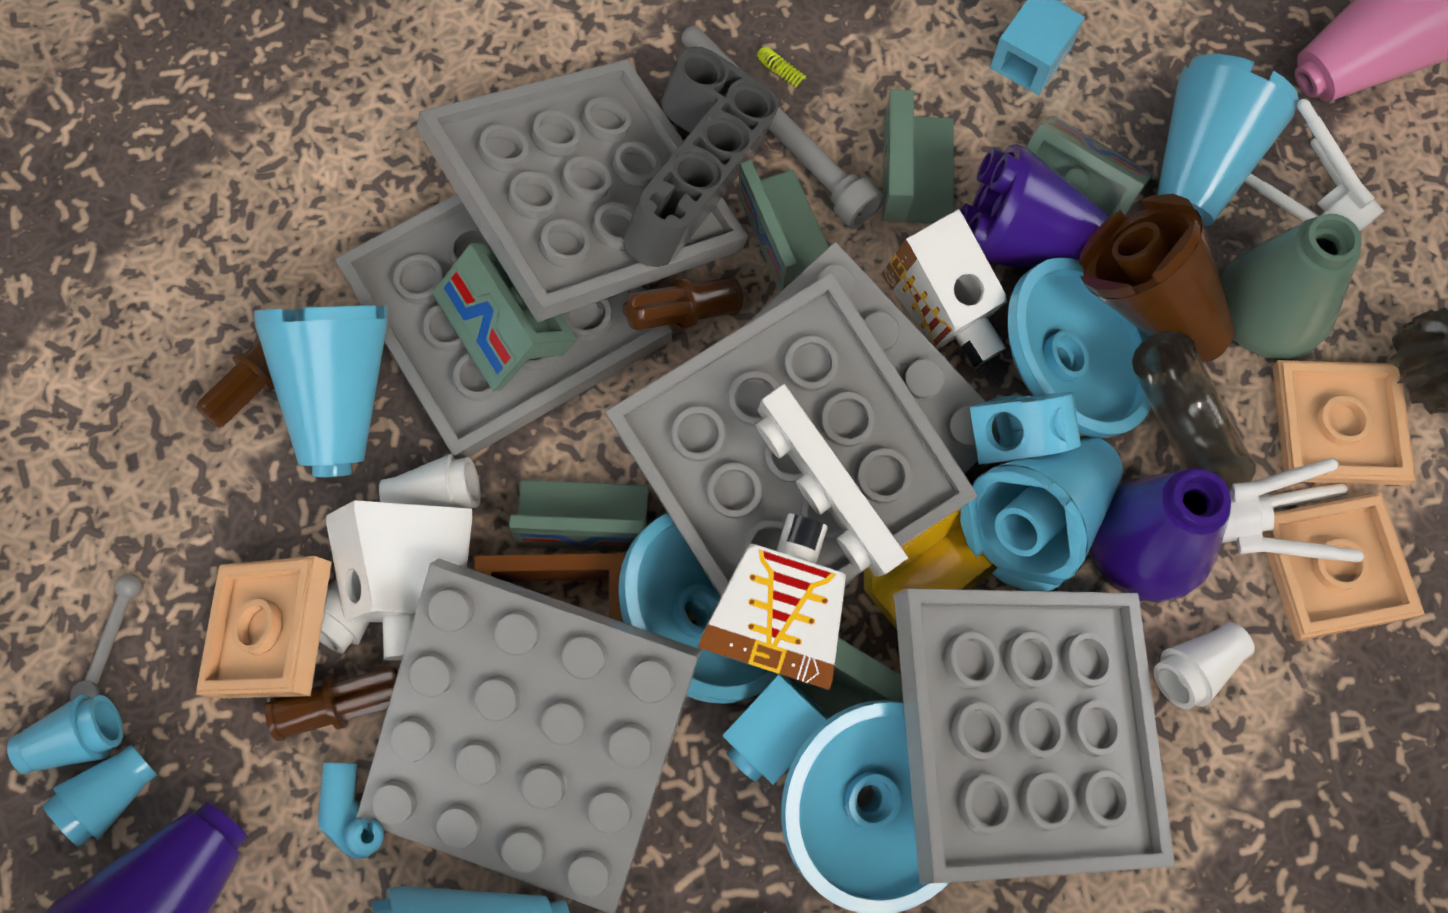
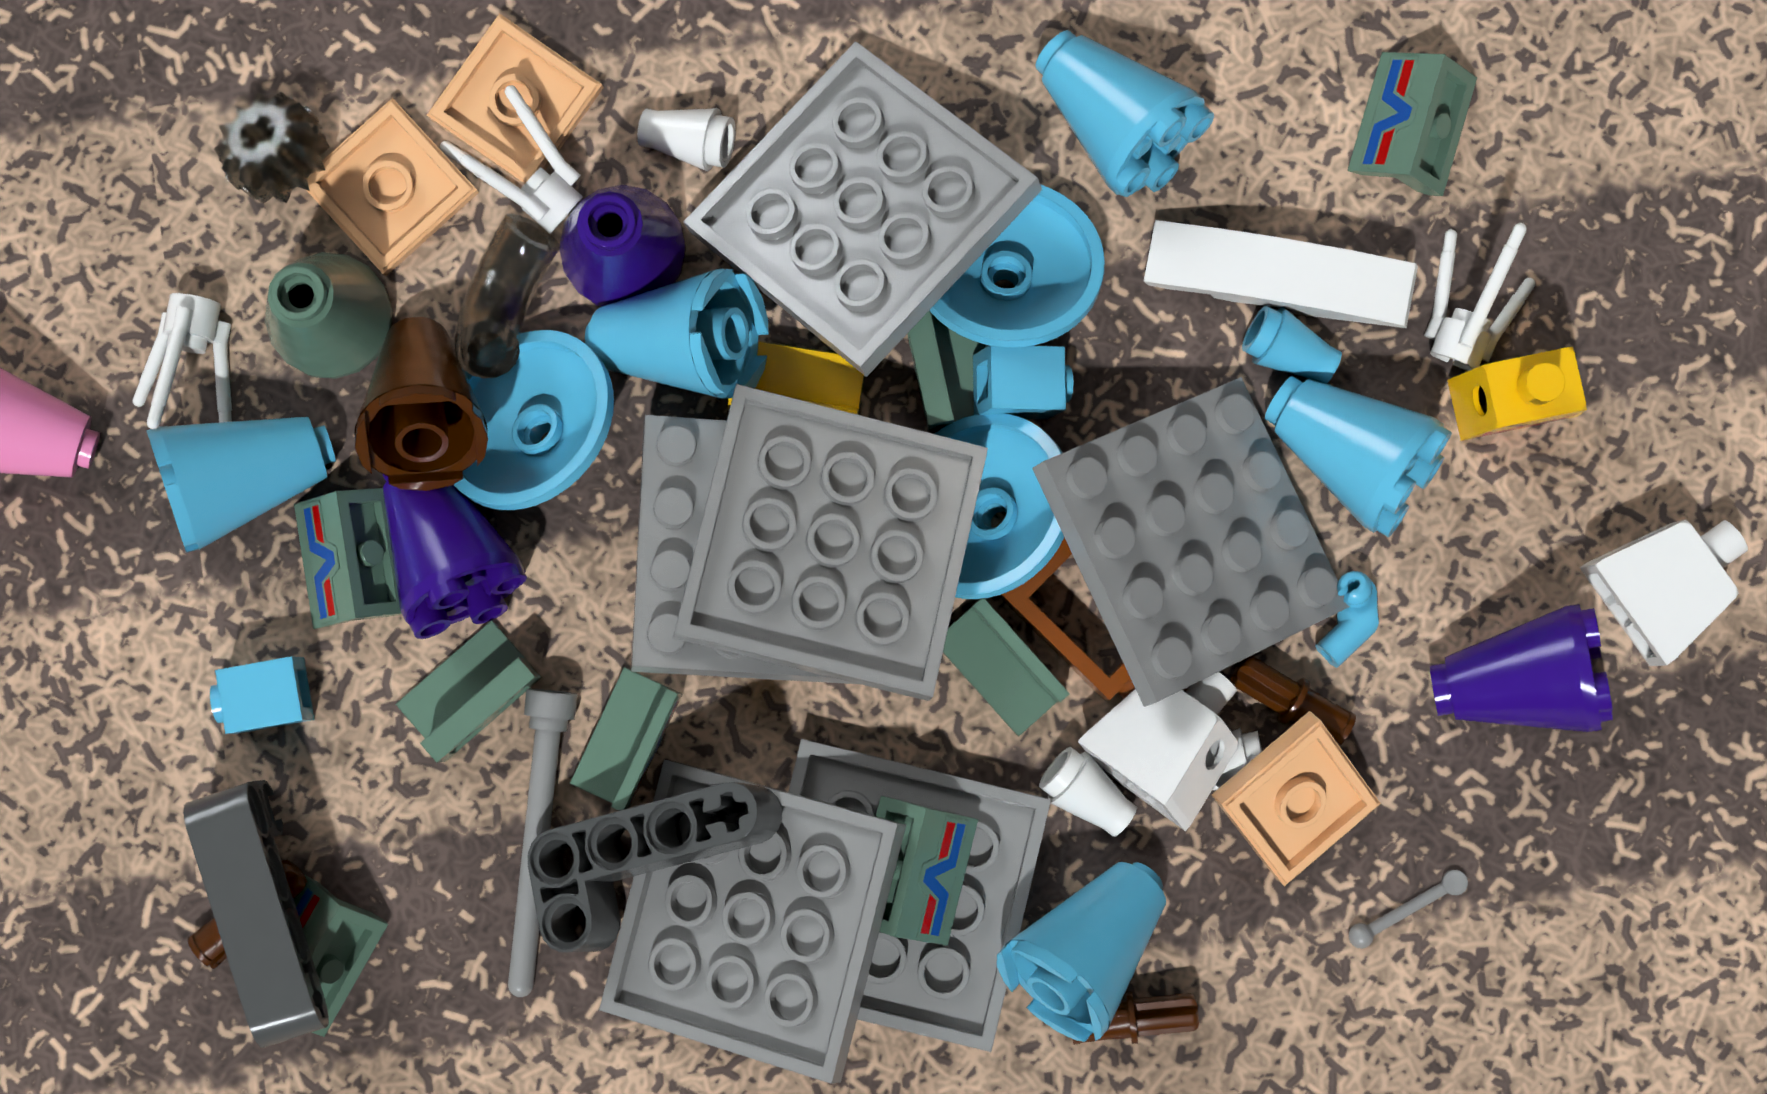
camera: 135 degrees left, 15 degrees up
(68, 736) = (1489, 856): medium azure cone -> none
(98, 796) = (1503, 792): medium azure cone -> none
(683, 303) = (770, 749): reddish brown axle -> none
(777, 58) = (479, 888): neon yellow leg -> none
(781, 608) = (955, 441): torso -> none
(828, 484) = (840, 487): white plate -> none
(949, 287) = (566, 585): white torso -> none
(1026, 426) = (642, 389): medium azure leg -> none

